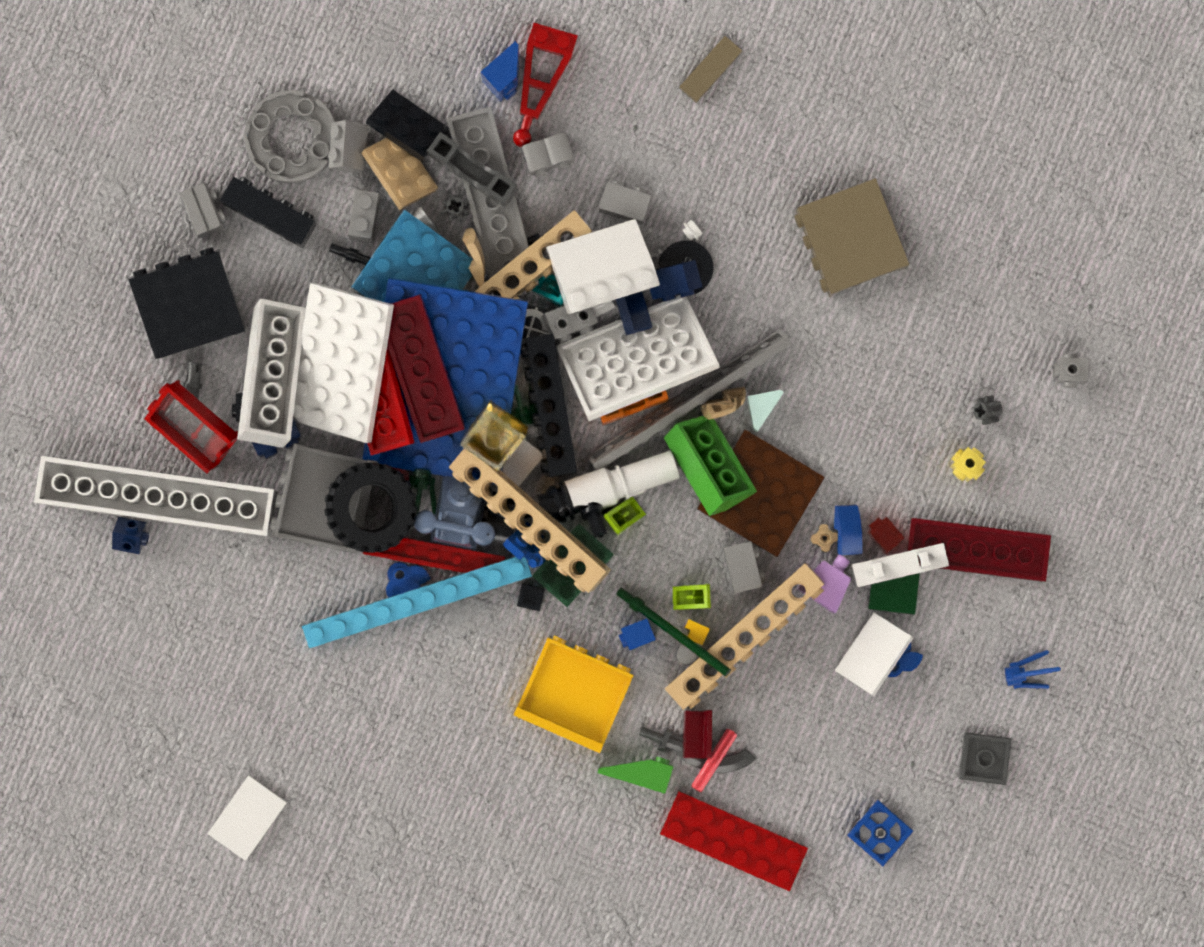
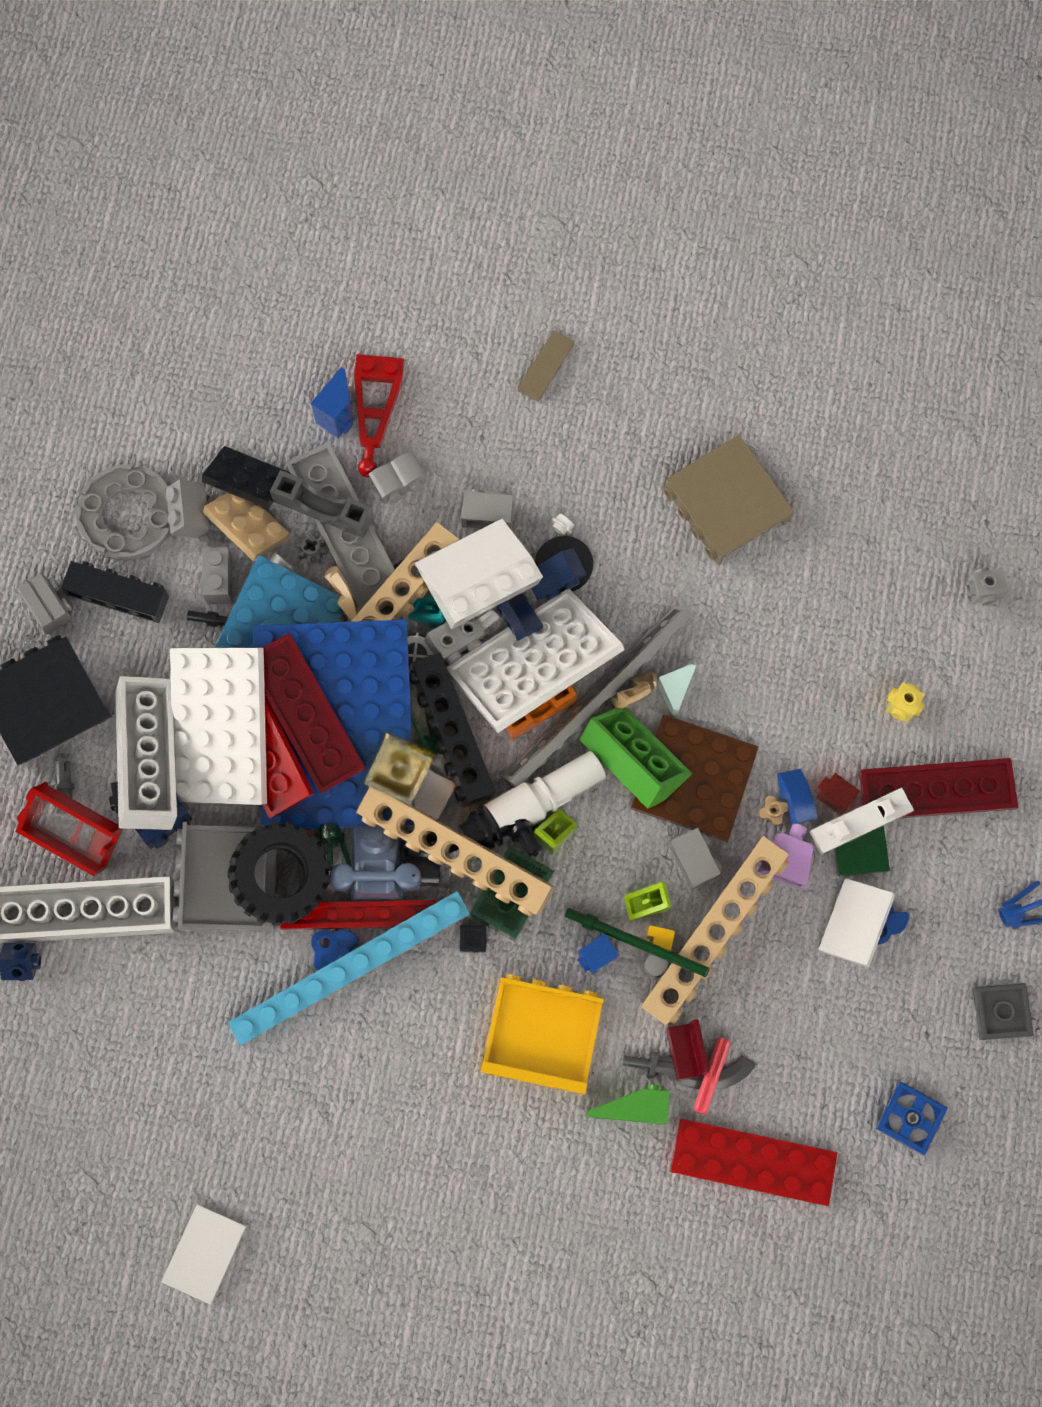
camera: 15 degrees left, 10 degrees down
(521, 549) = (453, 885): blue plate -> none
(988, 410) = (911, 643): dark grey gear -> none

